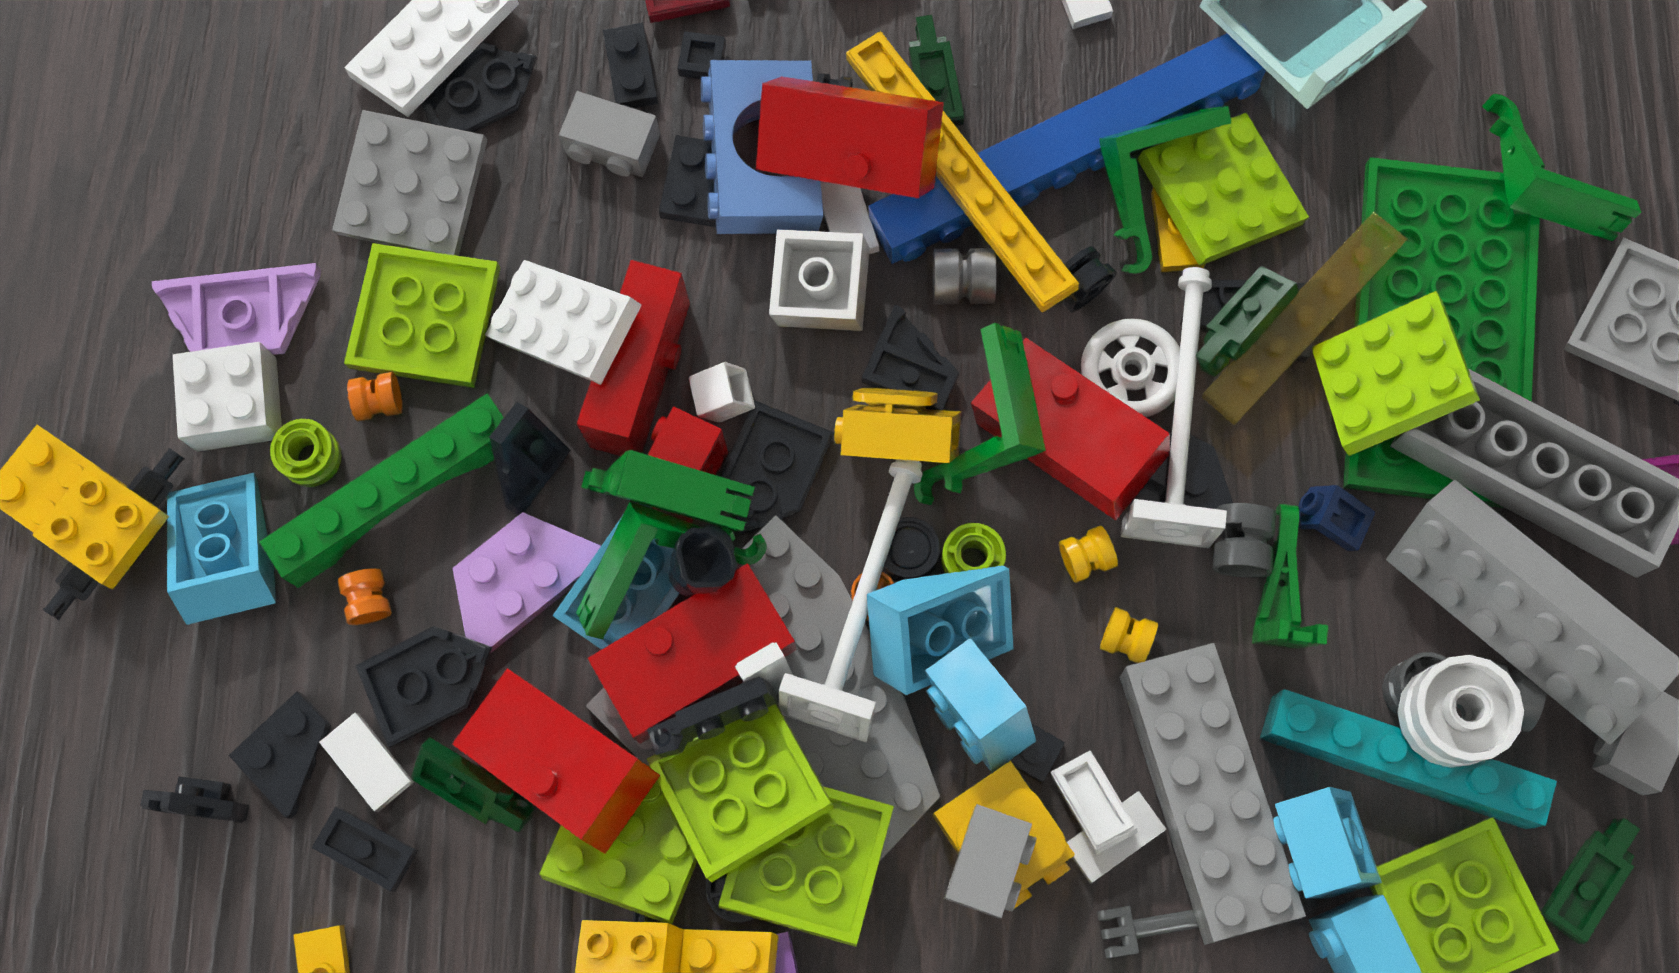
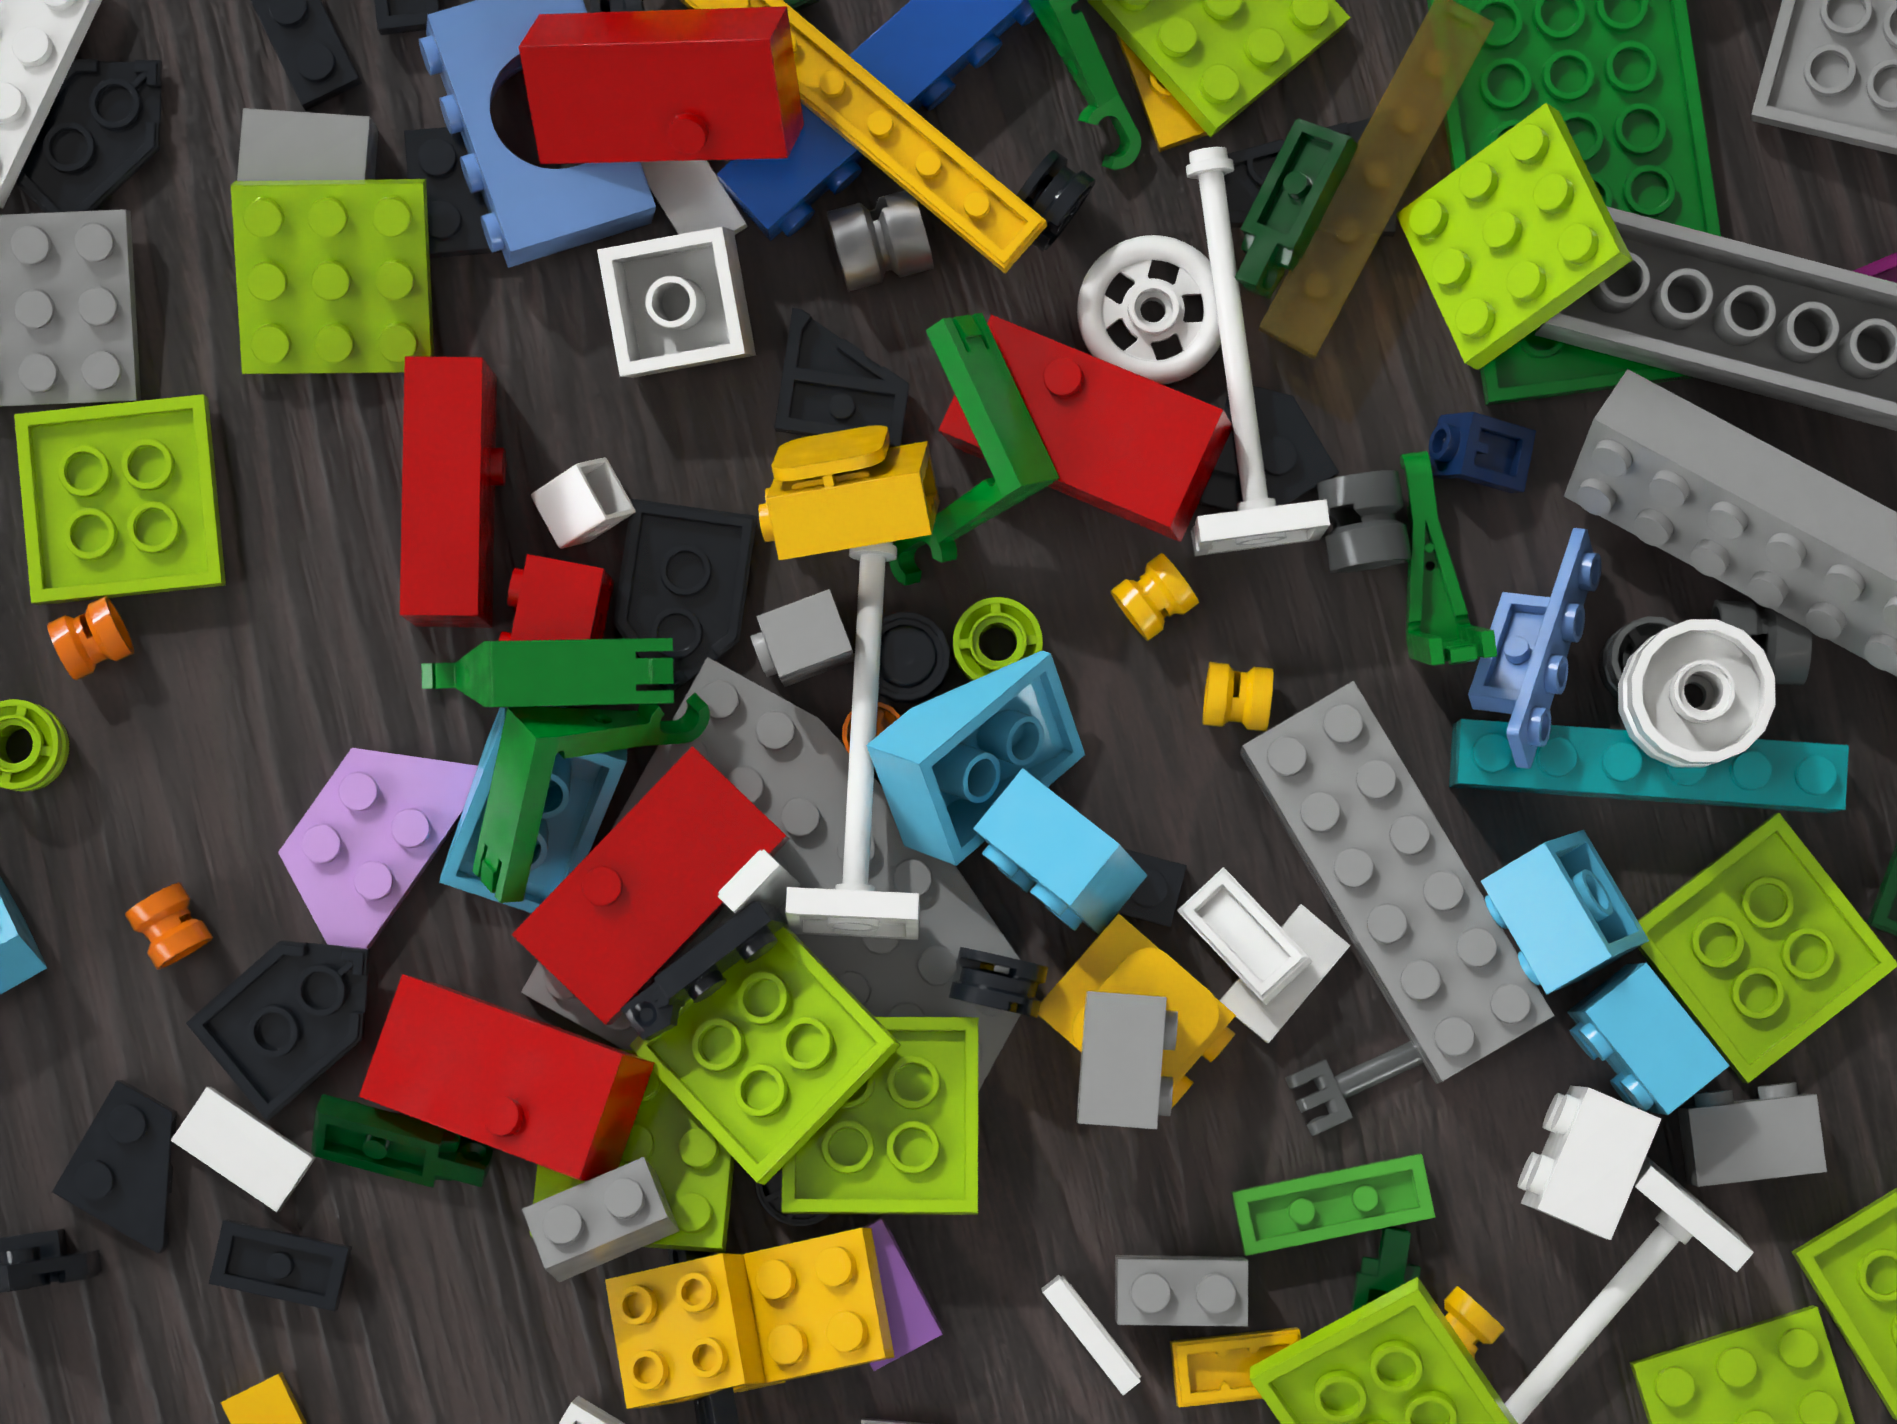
camera: 15 degrees left, 10 degrees up
(336, 523) = (129, 797): green arch -> none
(524, 456) = (334, 672): black wing -> none
(563, 321) = (330, 466): white plate -> none
(588, 874) = (600, 1220): none -> light grey brick
(601, 206) = (332, 275): none -> lime plate
(702, 561) = (632, 762): black piece -> none
(842, 516) = (802, 639): none -> light grey brick
(911, 790) = (997, 990): none -> black wheel
(1344, 661) = (1533, 650): none -> medium blue bracket

